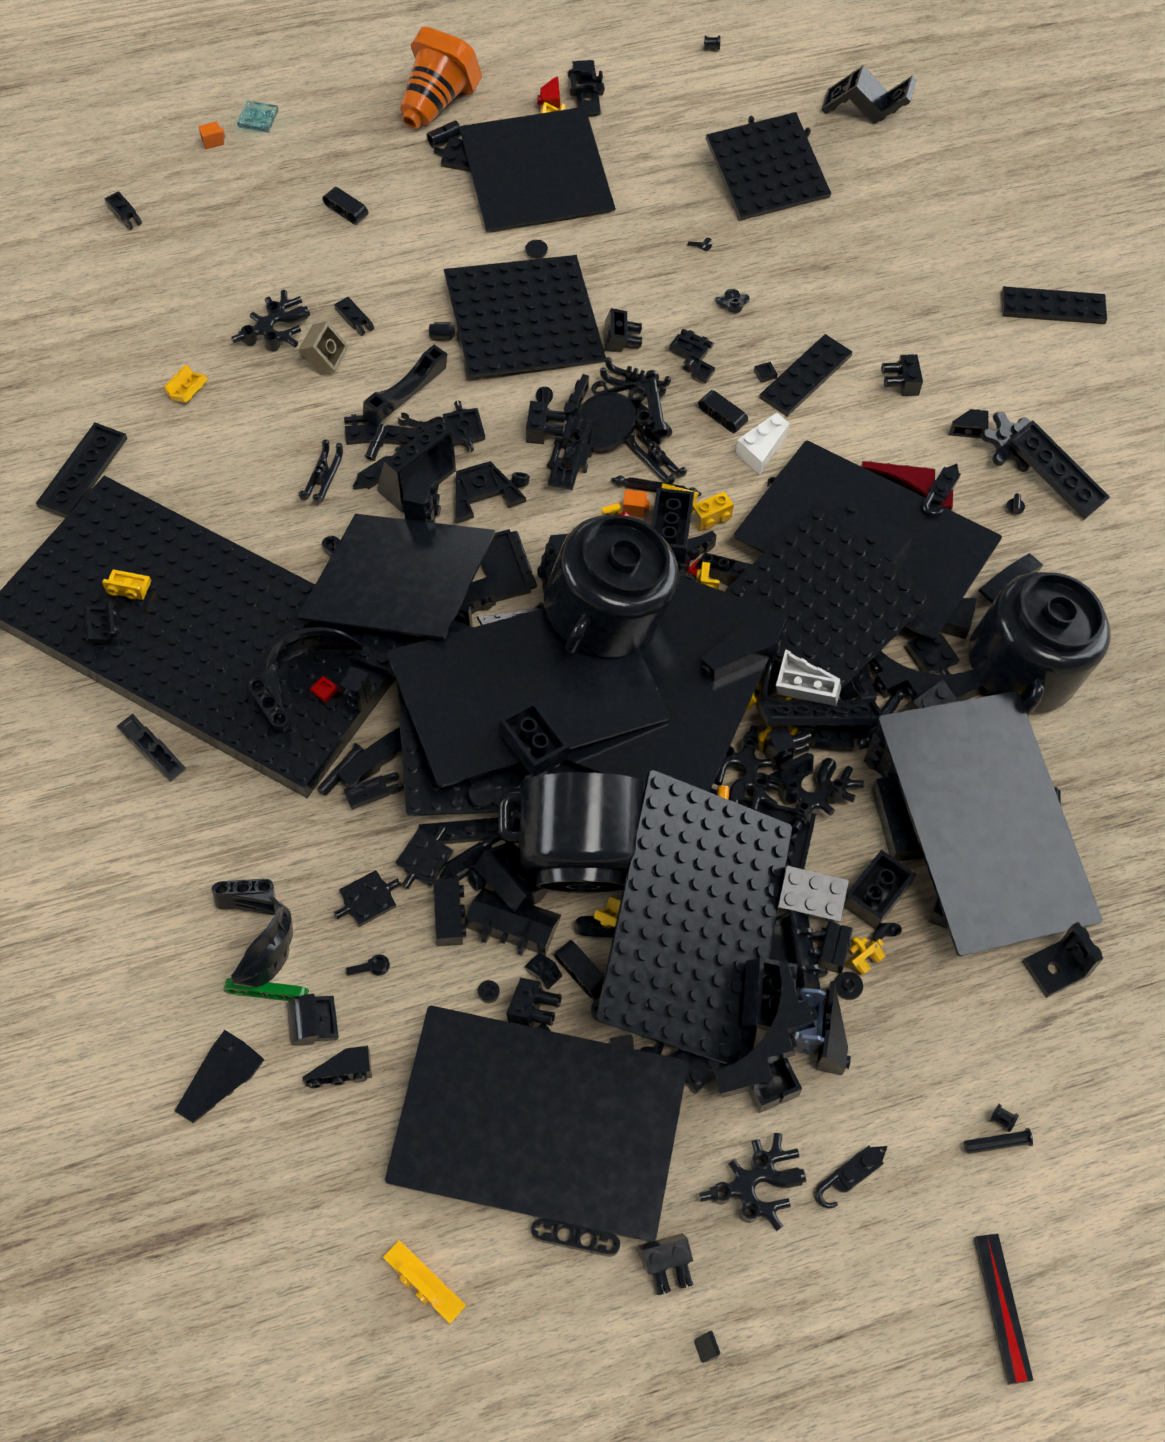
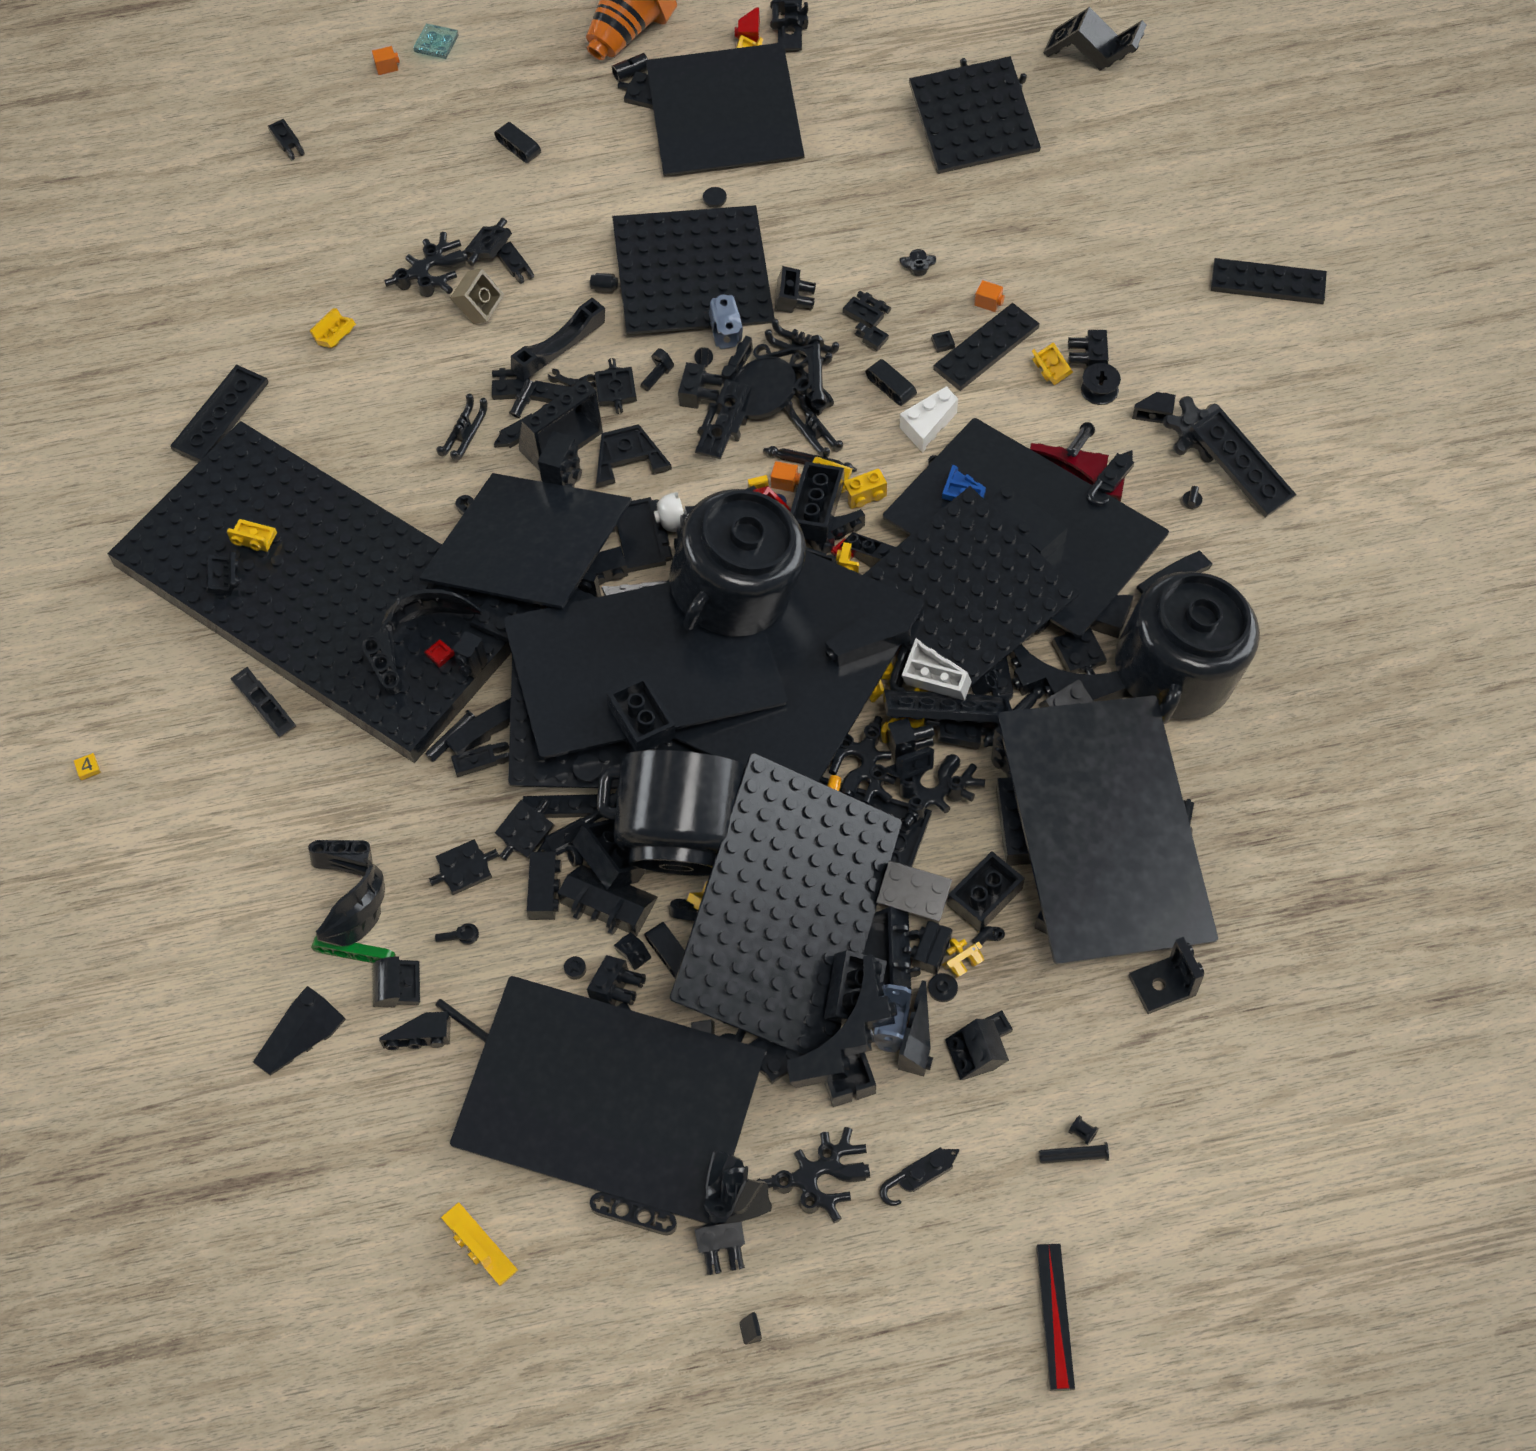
camera: 10 degrees right, 0 degrees up
(327, 297) = (488, 242): none -> black plate
(387, 1055) = (461, 1019): none -> black bar
(507, 405) = (663, 365): none -> black piece
(520, 478) = (668, 444): black tile -> none
(531, 542) = (669, 512): none -> white cylinder
(563, 361) = (725, 321): none -> sand blue piece
(671, 1213) = (730, 1193): none -> black piece
(705, 245) = (896, 199): black hand -> none
(803, 329) = (989, 296): none -> orange brick
(803, 502) = (958, 483): none -> blue wing
(870, 387) = (1053, 364): none -> yellow bracket
(890, 1044) = (976, 1049): none -> black slope
(906, 1019) = (1001, 1022): none -> black tile
(910, 448) = (1086, 430): none -> black axle
(916, 404) = (1097, 374): none -> black piece

